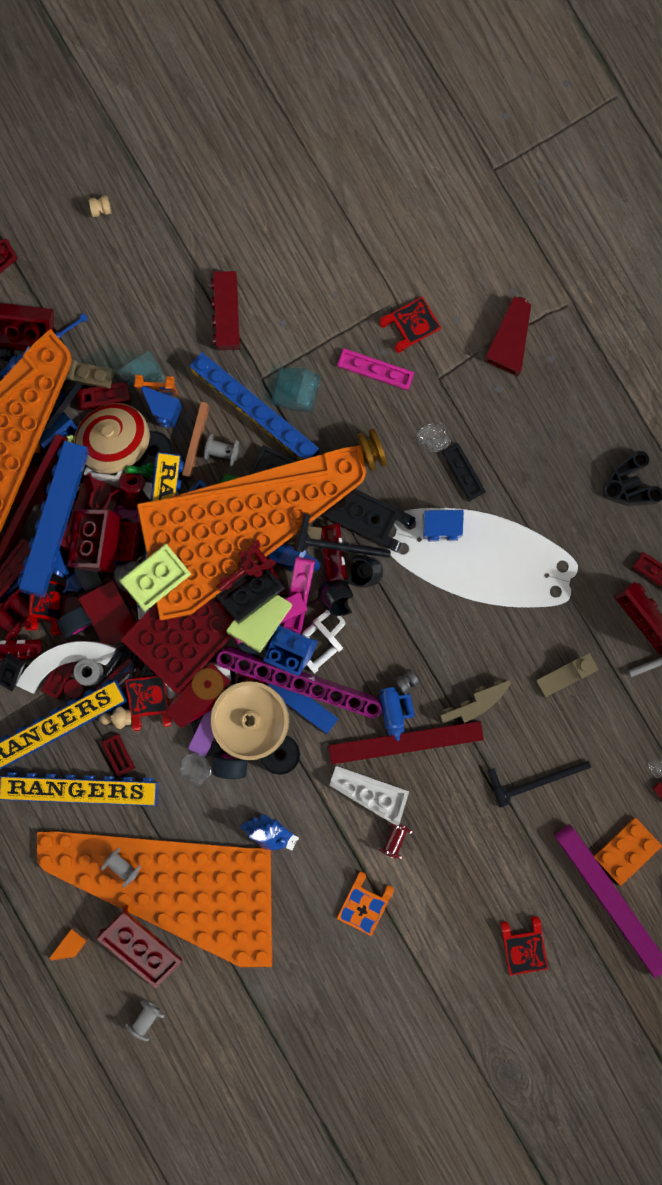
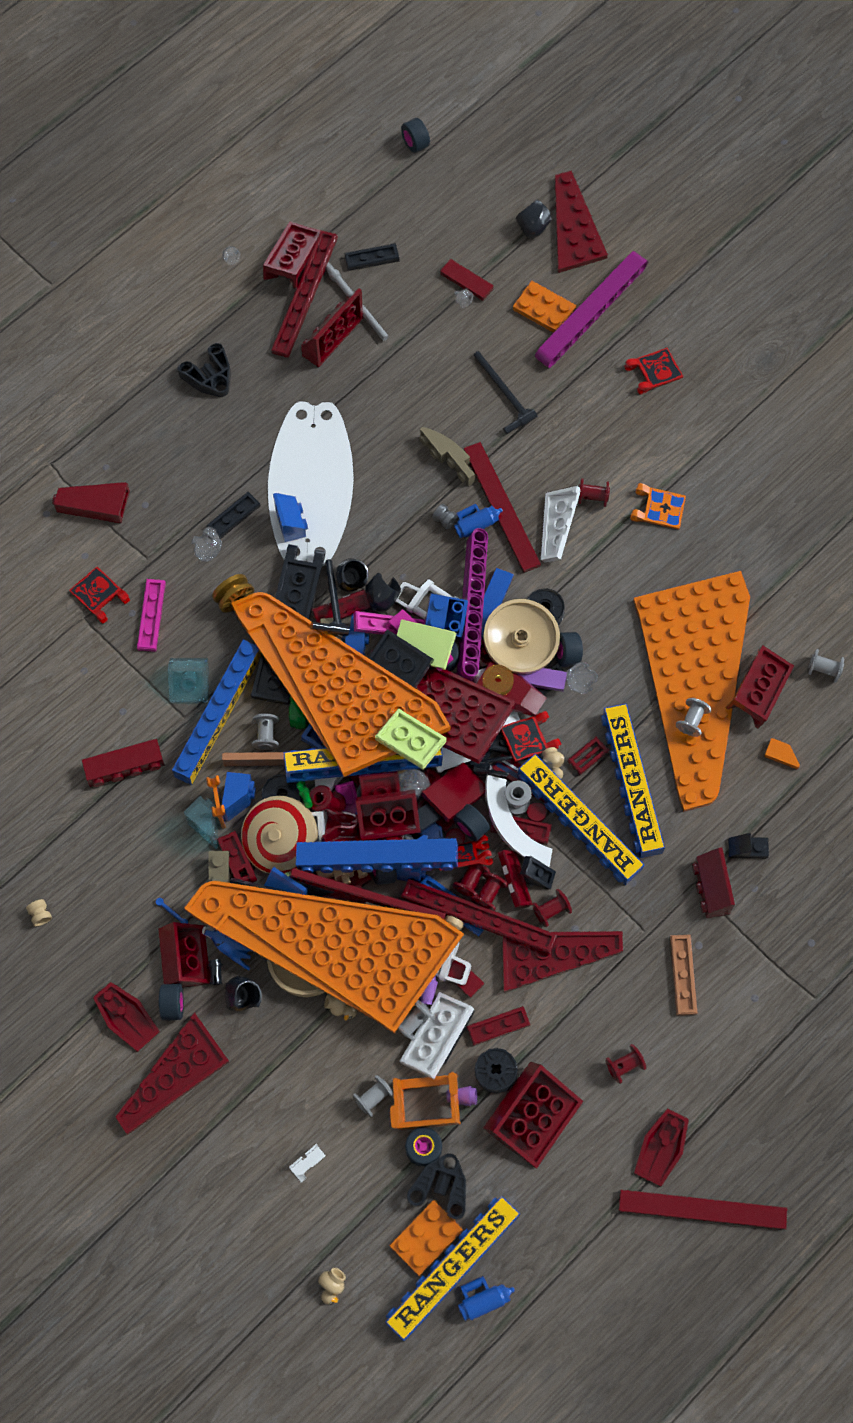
camera: 100 degrees left, 15 degrees down
(247, 566) = (375, 665): dark red piece -> none
(269, 833) = (620, 601): blue piece -> none
(567, 675) = (400, 386): dark tan slope -> none

